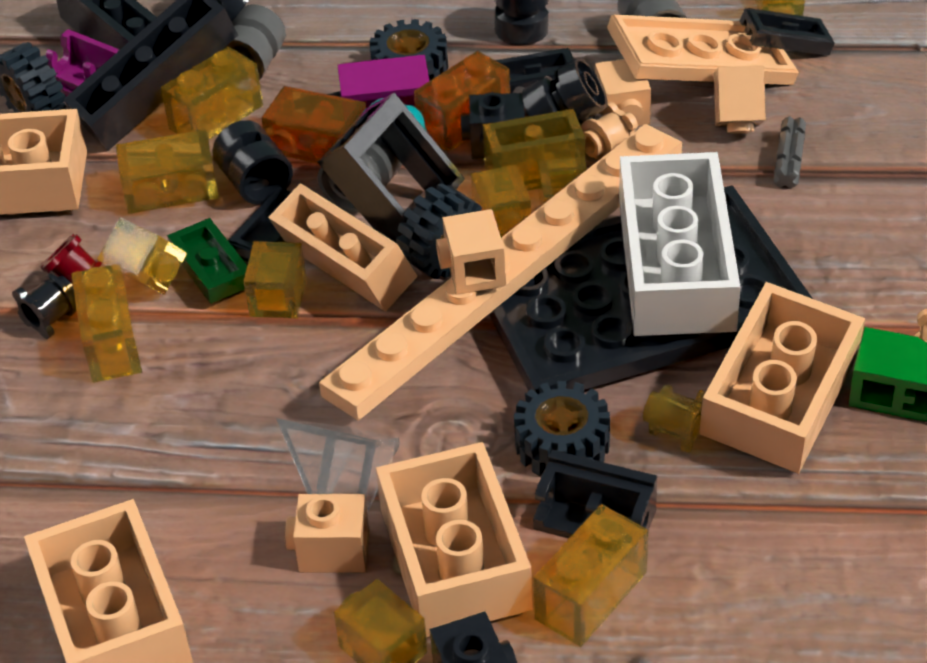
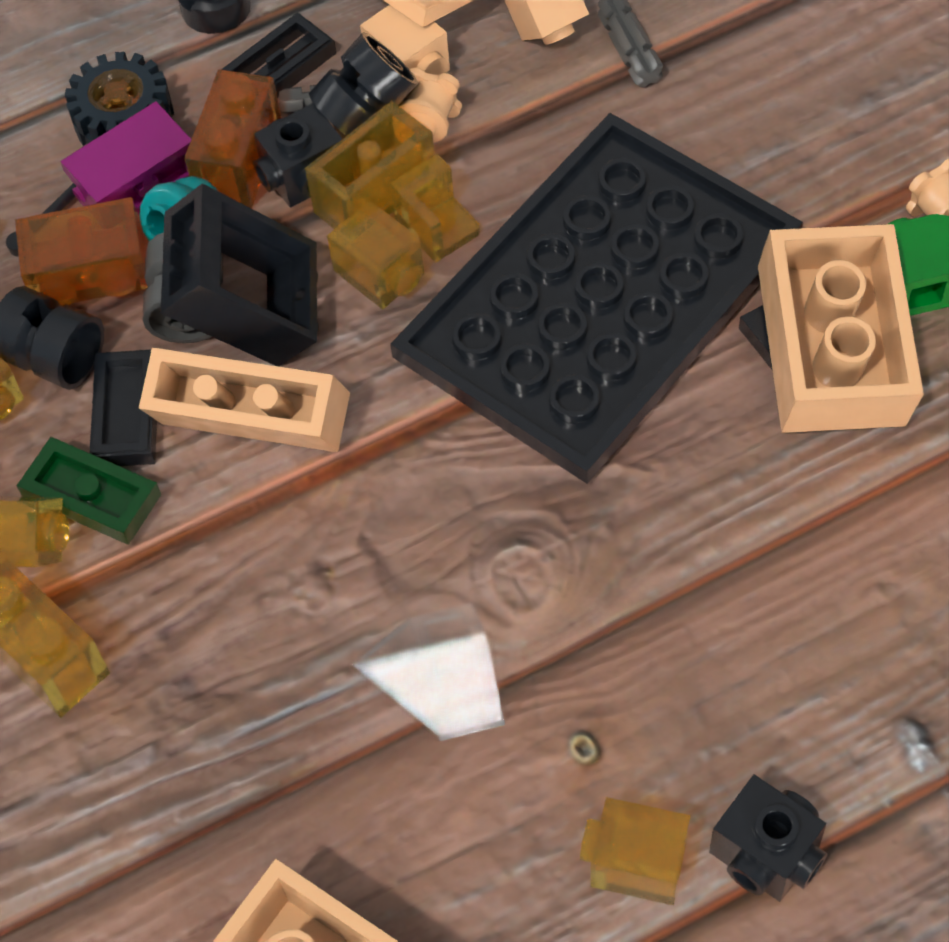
camera: 30 degrees left, 15 degrees up
(275, 279) = (190, 477): clear yellow brick -> none
(329, 533) = (496, 764): light nougat brick -> none
(426, 226) = (346, 325): black wheel -> none
(446, 316) = (445, 351): light nougat plate -> none
(454, 537) = (641, 699): light nougat brick -> none
(472, 251) = (428, 343): light nougat brick -> none
(561, 422) = (644, 481): black wheel -> none
(577, 486) = (743, 572): black hinge -> none
(590, 575) = (806, 662): clear yellow brick -> none
(674, 415) = (750, 424): clear yellow brick -> none
(678, 245) = (630, 221): white brick -> none

